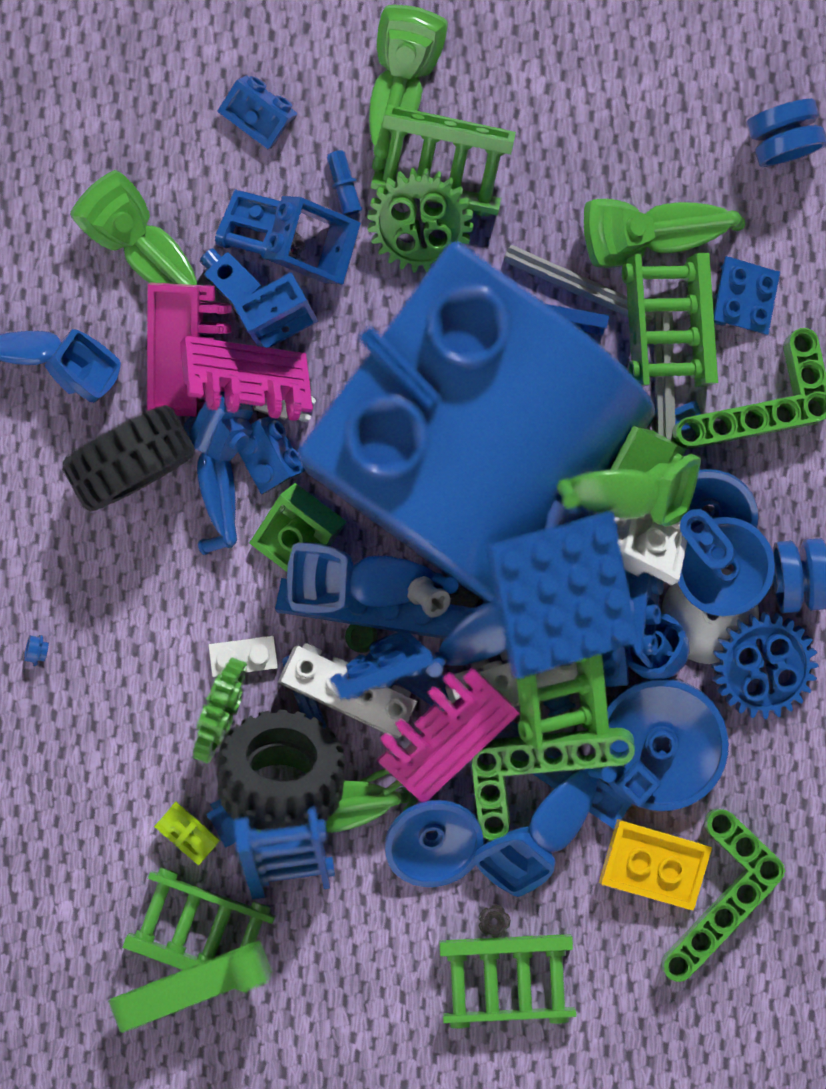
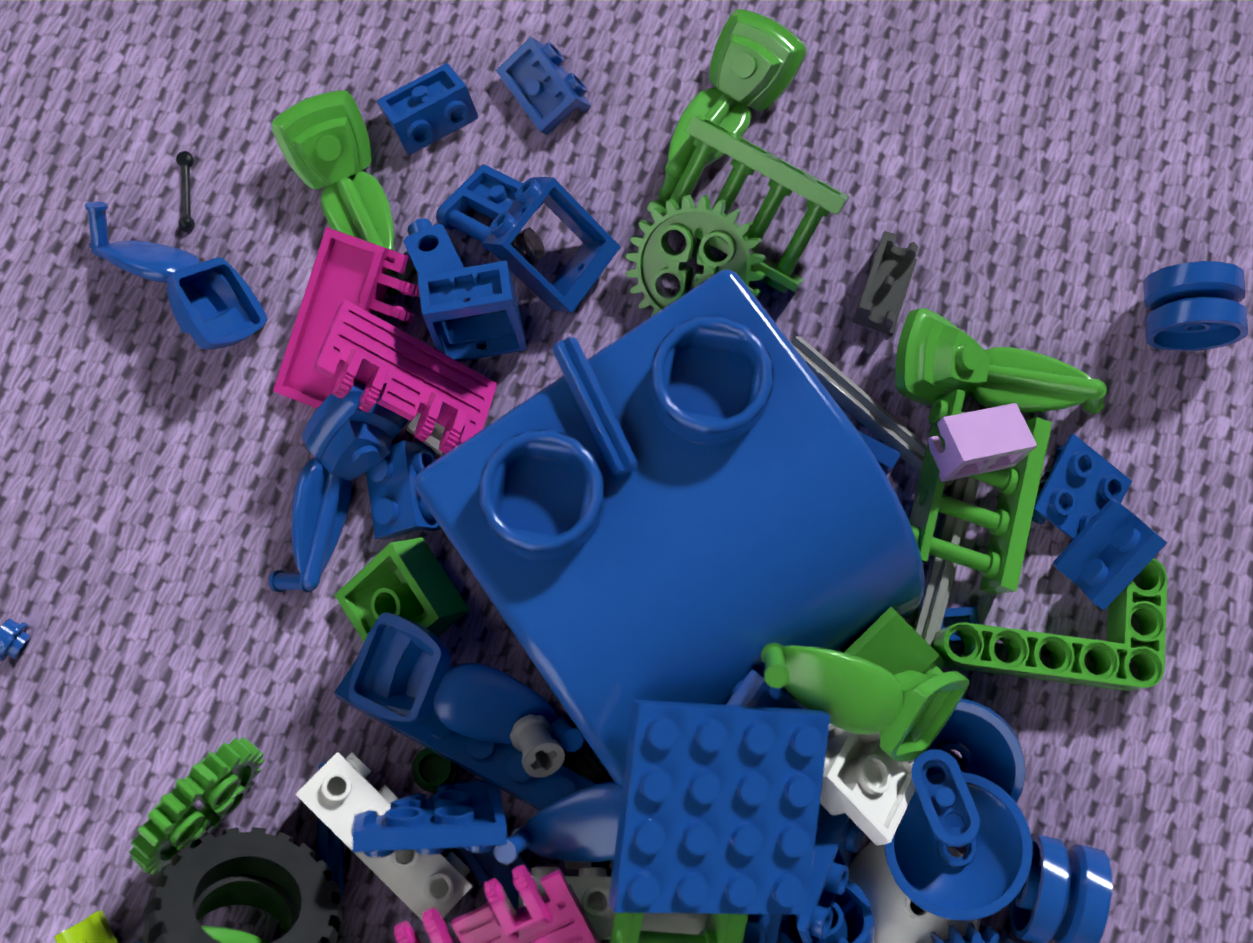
camera: 20 degrees right, 10 degrees down
(9, 259) = (185, 161): none -> black hinge
(127, 458) = (210, 426): black tyre -> none
(176, 157) = (428, 108): none -> blue bracket
(256, 652) = (281, 741): white plate -> none
(344, 183) = (617, 198): blue axle -> none
(562, 185) = (886, 285): none -> dark grey hinge
(661, 287) = (981, 442): none -> lavender hinge
(773, 333) = (1109, 553): none -> blue bracket

